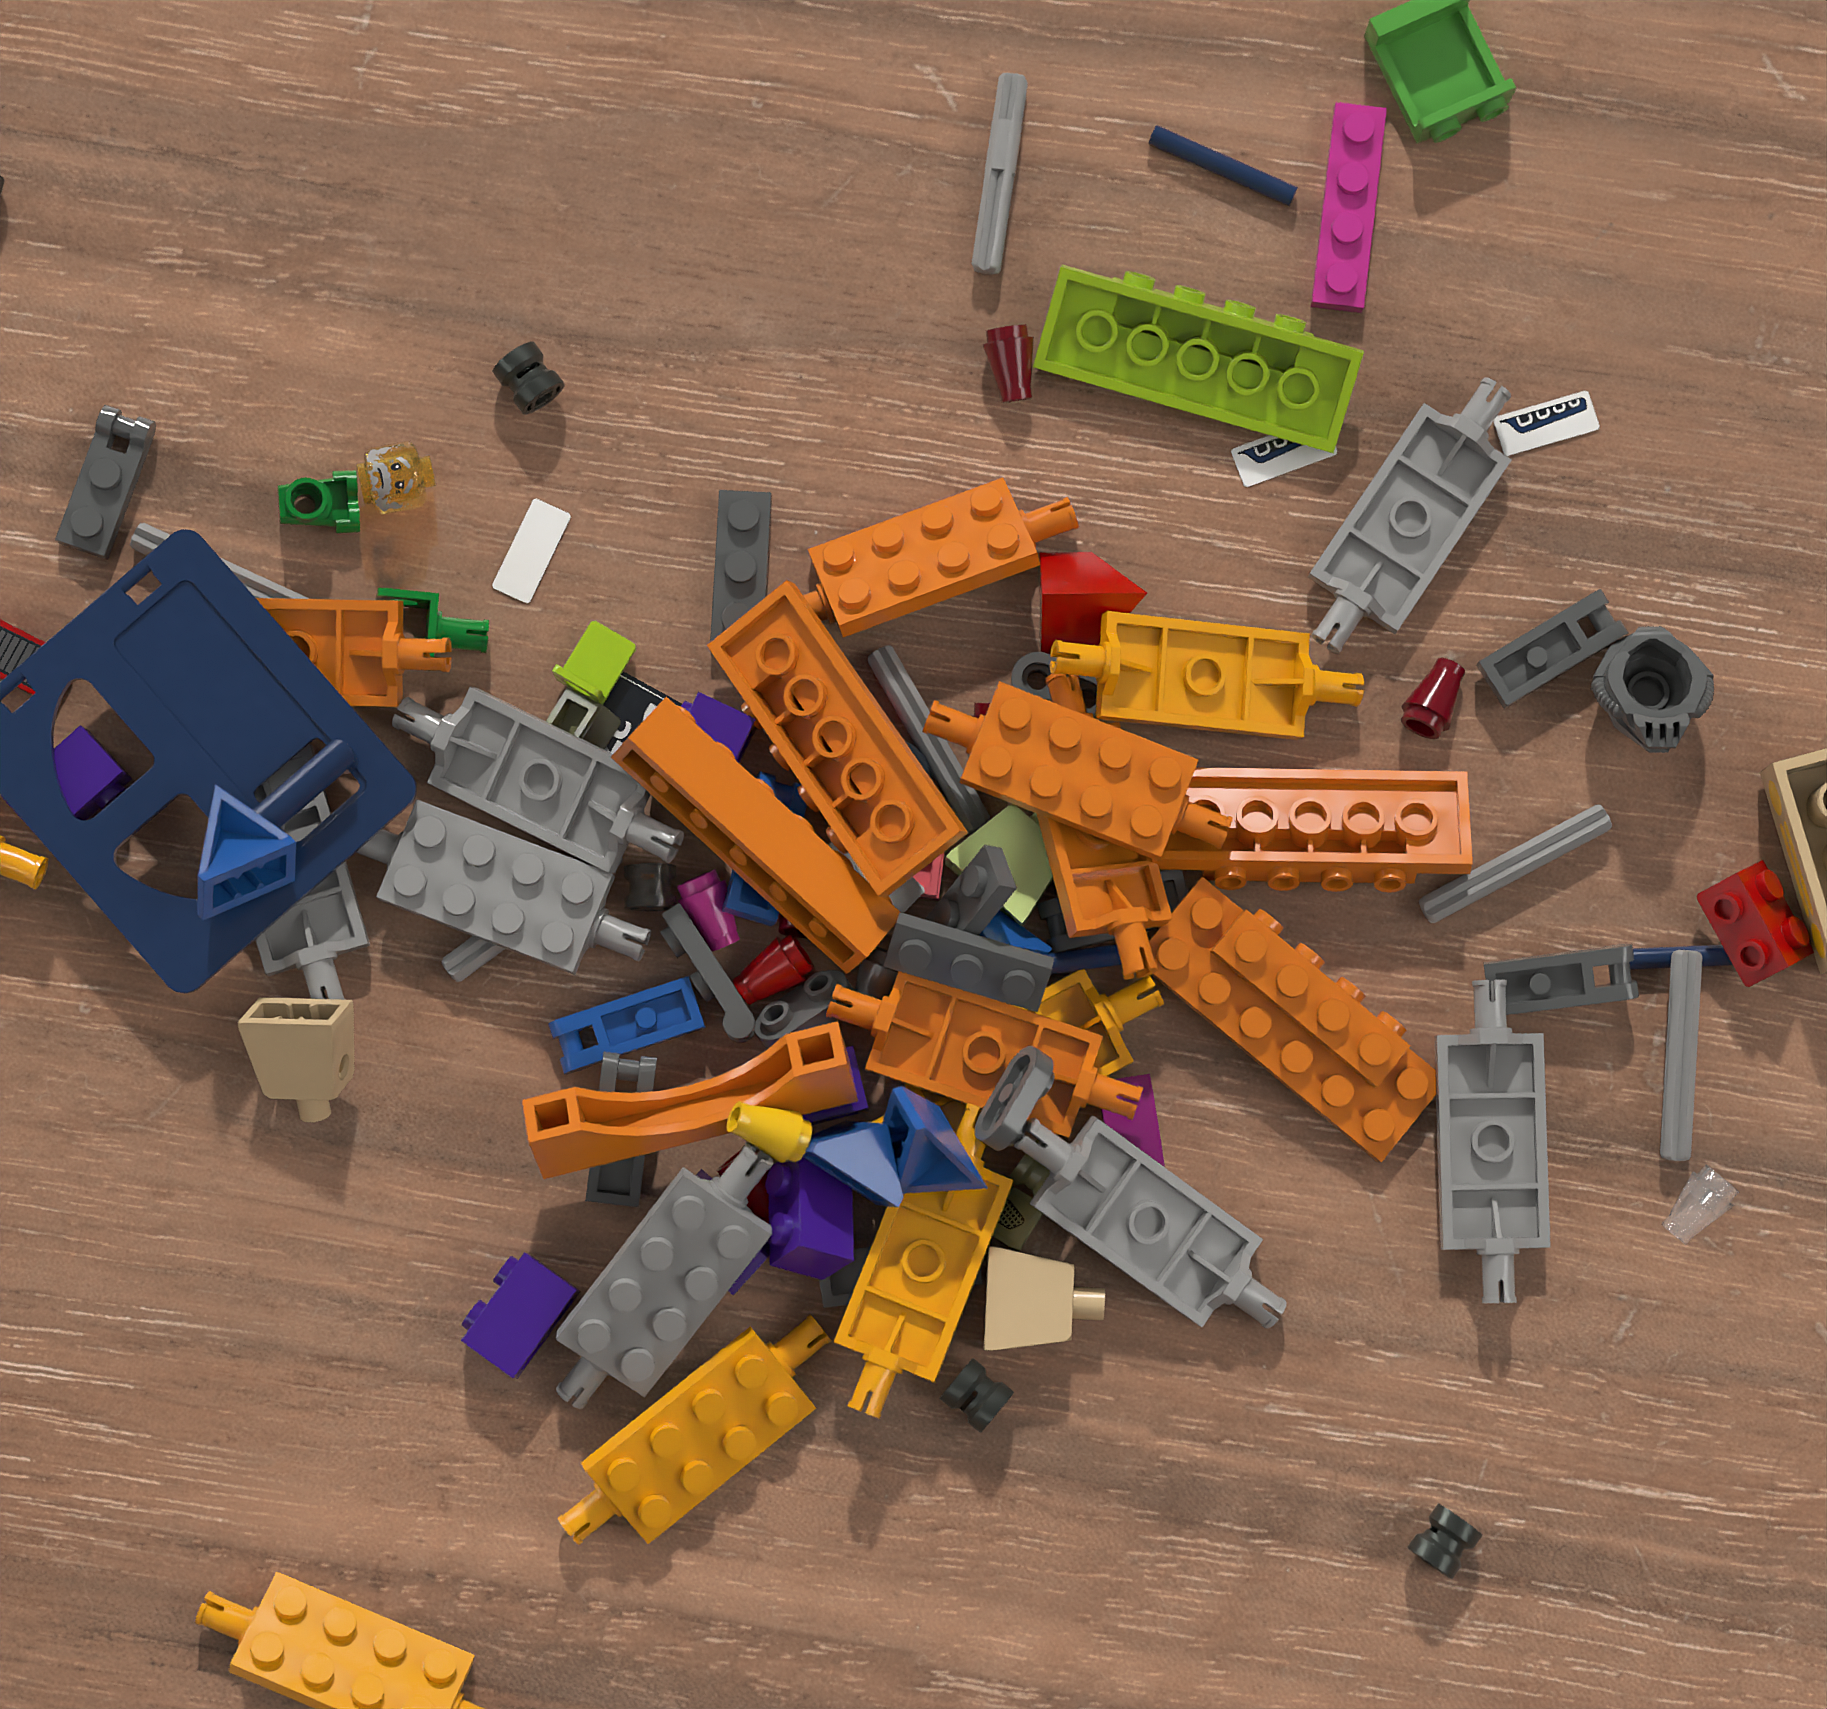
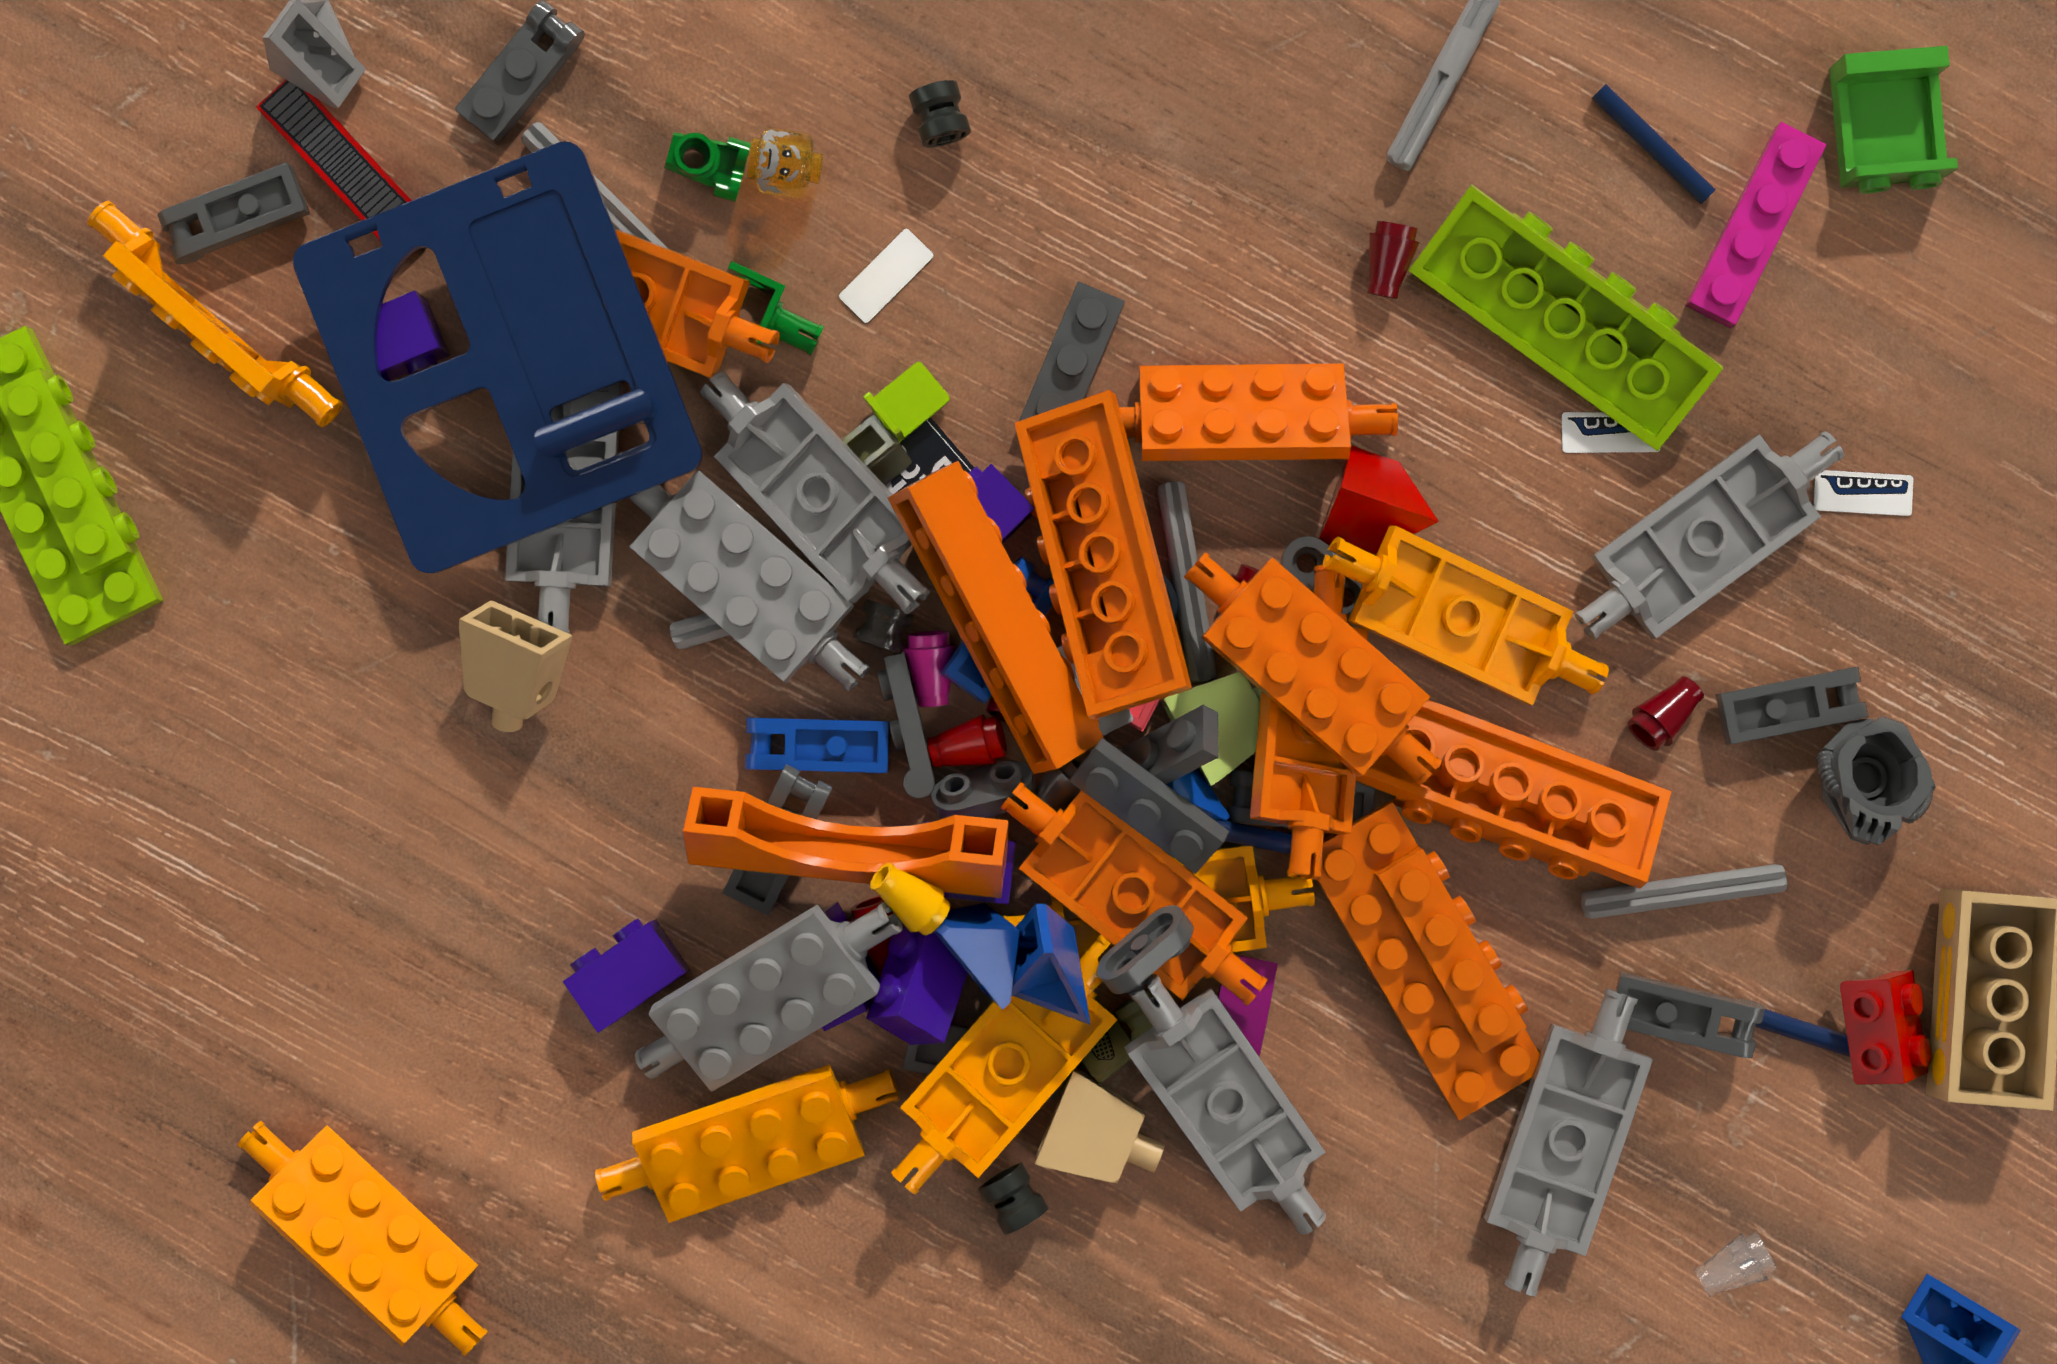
camera: 25 degrees right, 5 degrees up
(241, 856) = (512, 468): blue slope -> none
(1681, 1055) = (1771, 1123): light grey axle -> none

